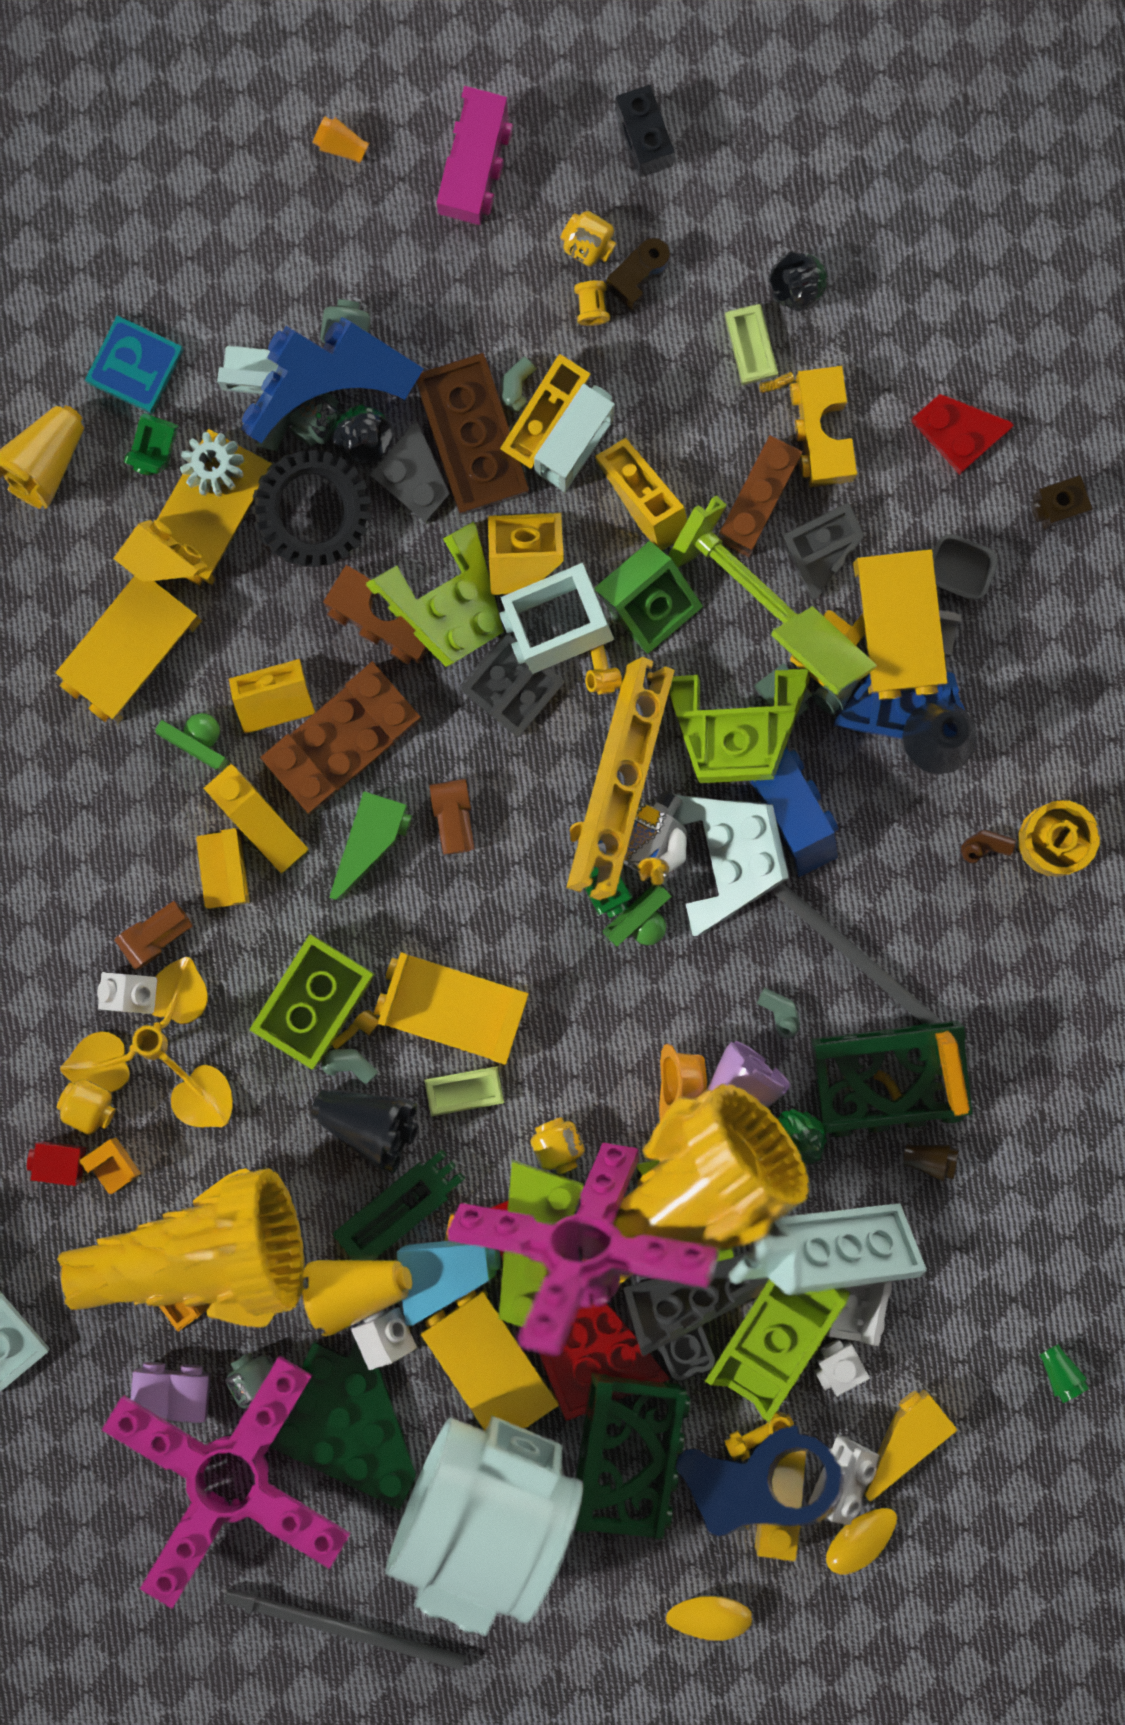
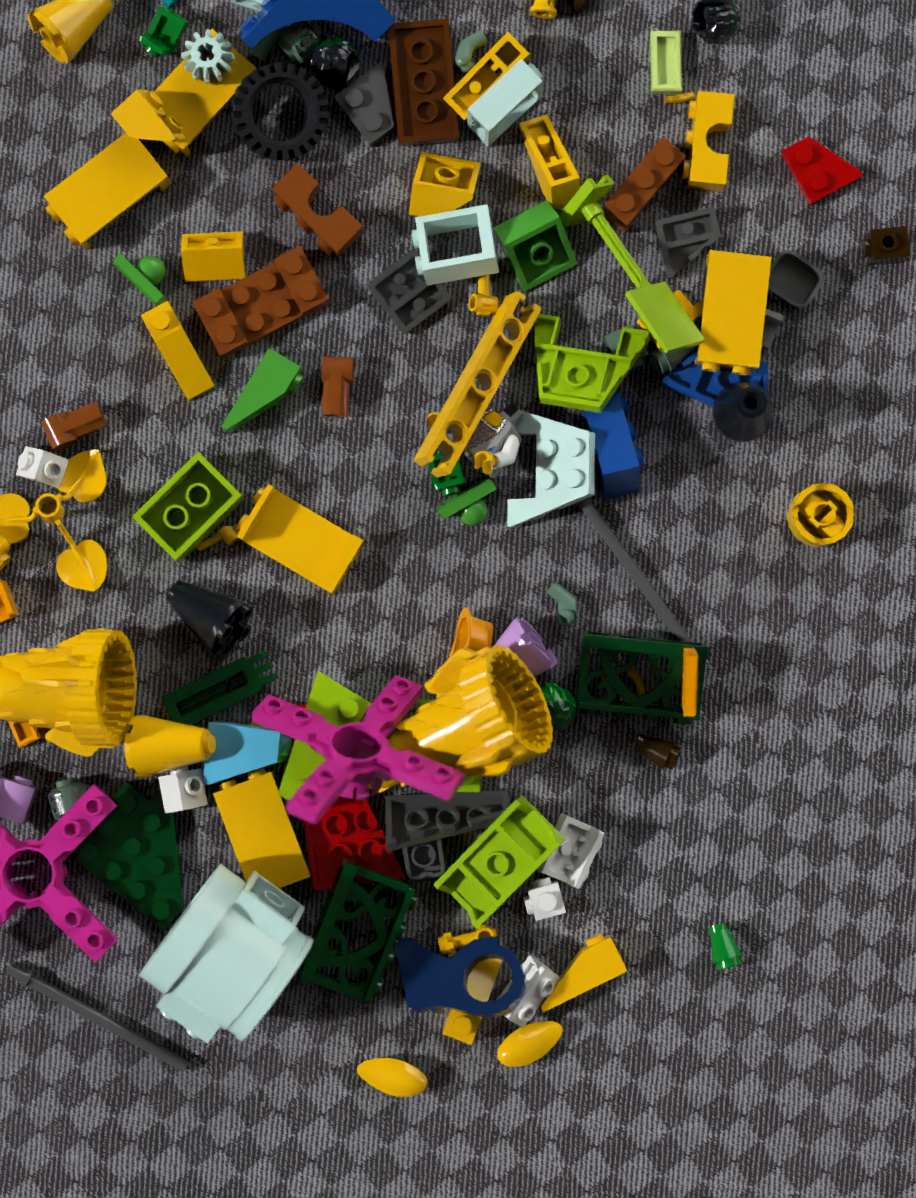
camera: 15 degrees right, 0 degrees up
(222, 869) = (142, 385): yellow panel -> none
(348, 1060) = (208, 562): sand green arm -> none
(455, 614) = (373, 223): lime wing -> none
(464, 1091) = (294, 608): yellowish green tile -> none
(557, 1145) = (358, 669): yellow head -> none
(834, 1250) = (560, 802): light aqua hinge -> none
(985, 842) = (761, 505): reddish brown arm -> none

